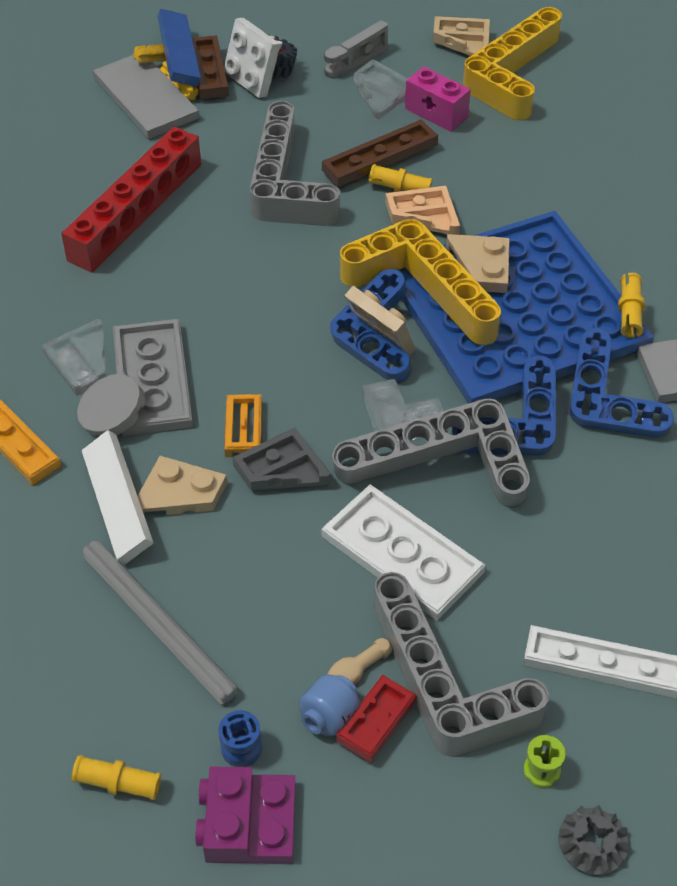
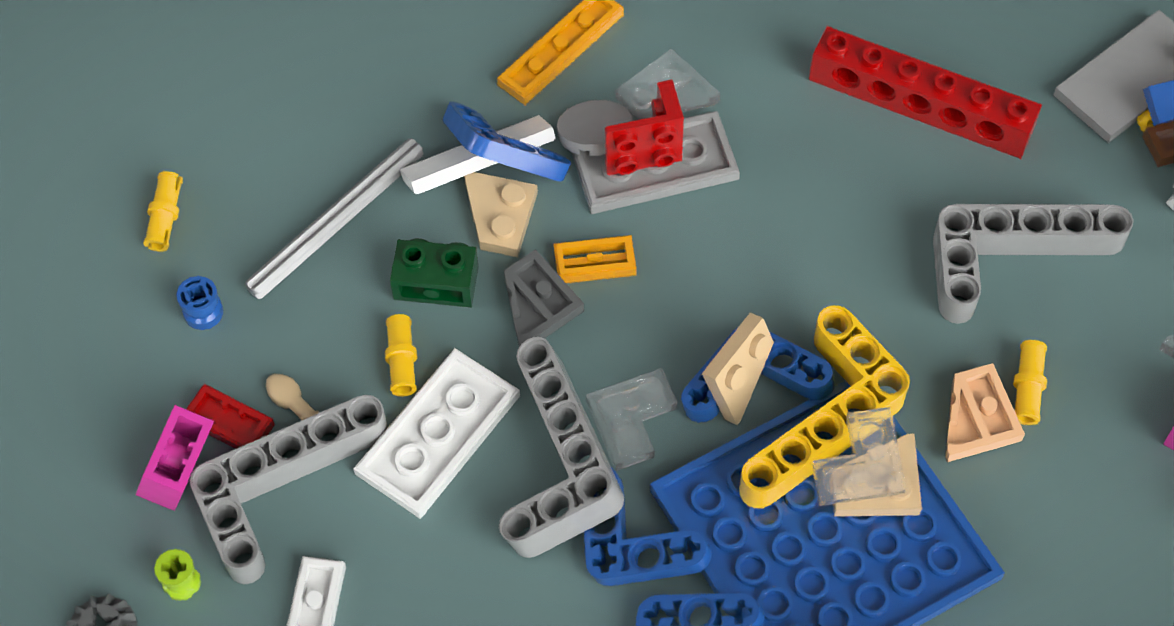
camera: 85 degrees right, 10 degrees up
(126, 464) = (482, 140): none -> blue beam
(136, 343) = (648, 140): none -> red bracket
(240, 536) = (434, 272): none -> dark green brick
(246, 816) = (126, 321): magenta plate -> none
(323, 570) = (401, 355): none -> yellow pin
(329, 704) = (237, 374): medium blue head -> none
(380, 151) = (1081, 354): reddish brown plate -> none
(424, 755) = (174, 458): none -> dark pink brick
(483, 243) = (872, 469): none -> clear plate

